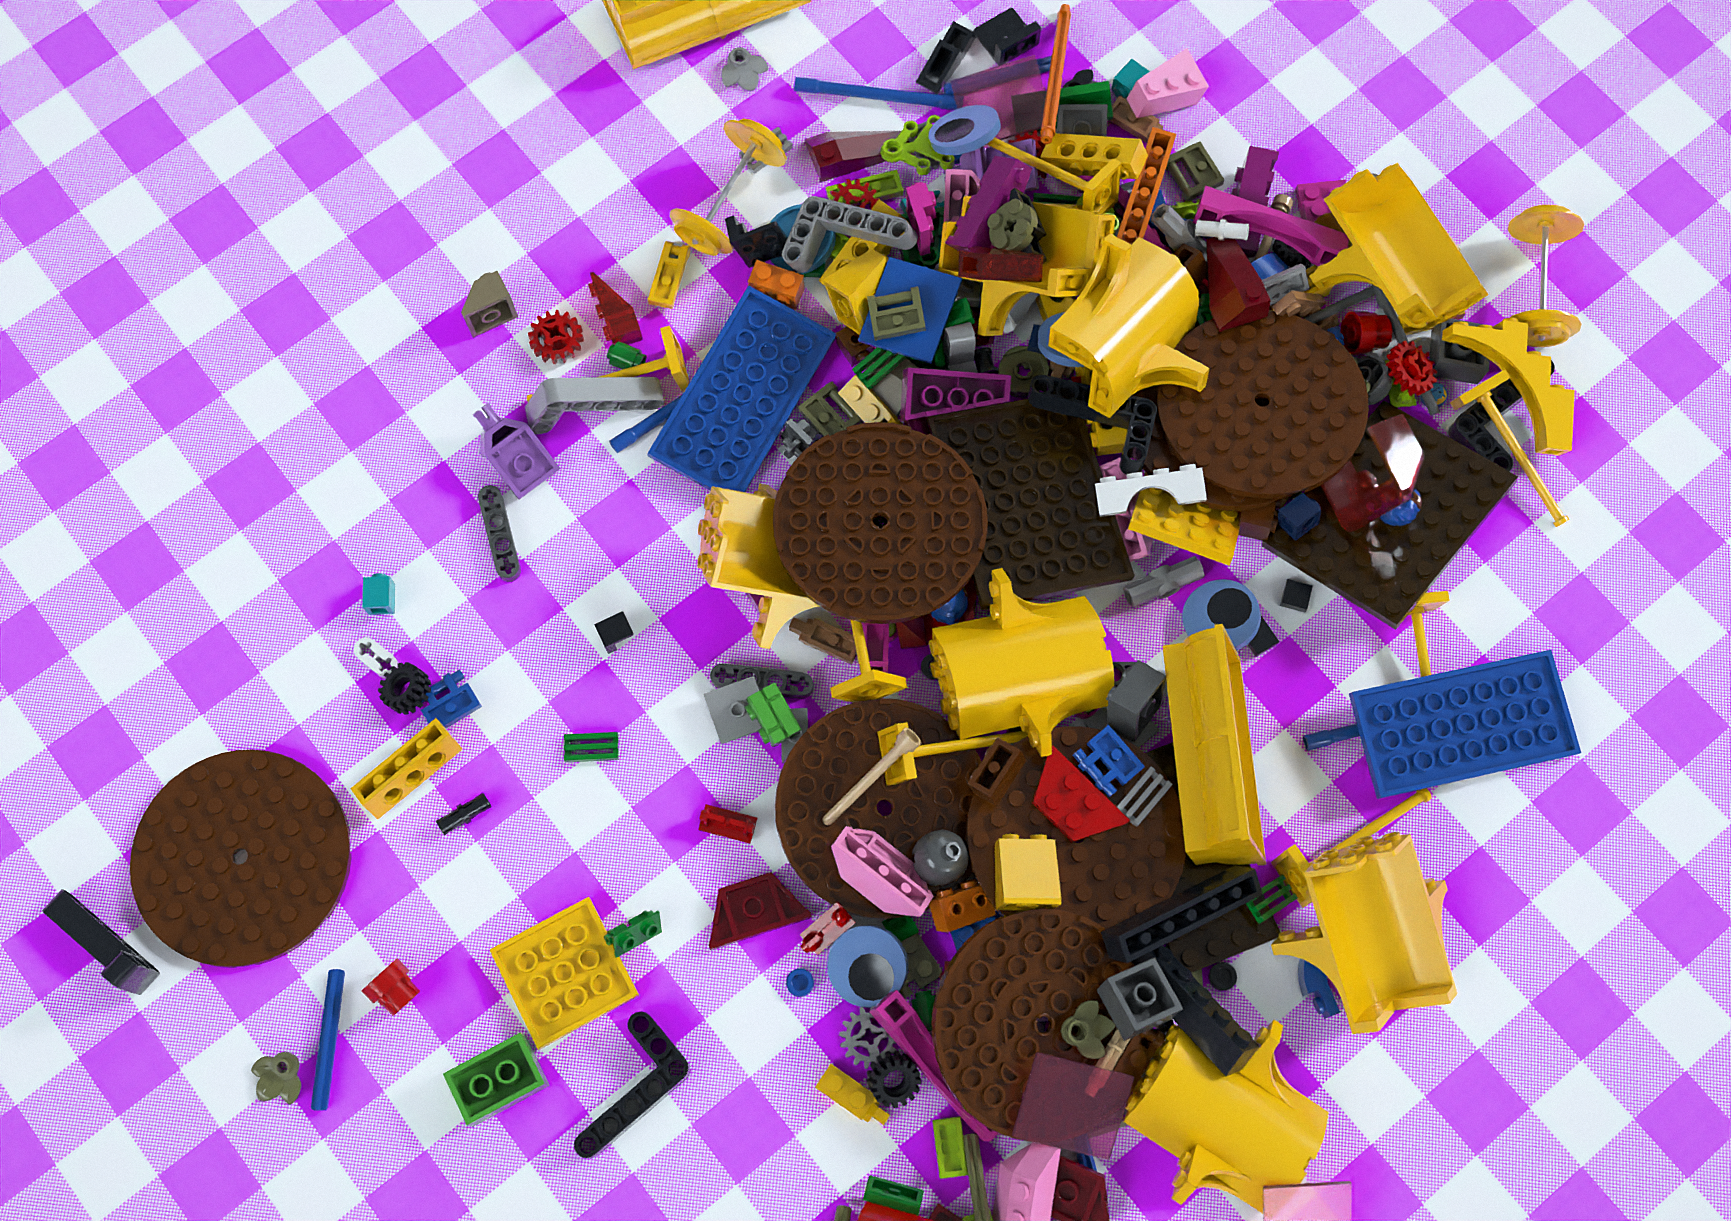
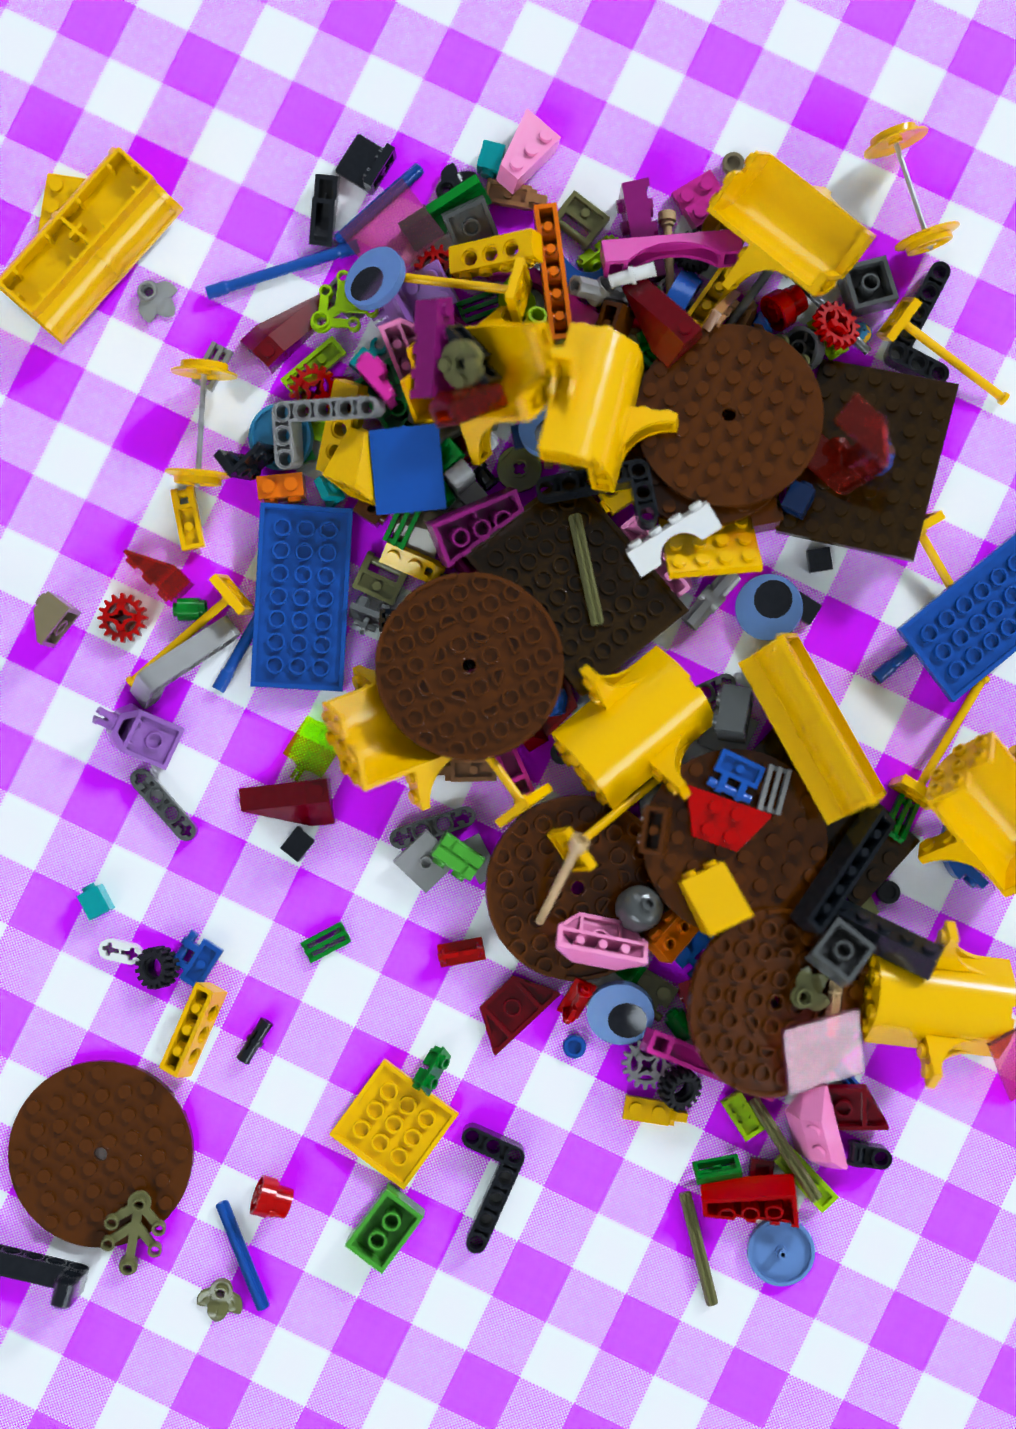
camera: 20 degrees left, 15 degrees up
(231, 952) = (134, 1229): none -> olive plant
(635, 589) = (295, 802): none -> dark red wedge
(675, 546) = (310, 749): none -> clear neon green plate
(821, 306) = (329, 492): none -> teal bracket
(897, 320) = (404, 485): olive plate -> none
(1045, 487) = (586, 569): none -> olive axle
(1055, 74) = (428, 190): orange piece -> none
(1285, 281) = (703, 299): light grey plate -> none
(1549, 405) = (957, 305): yellow arch -> none

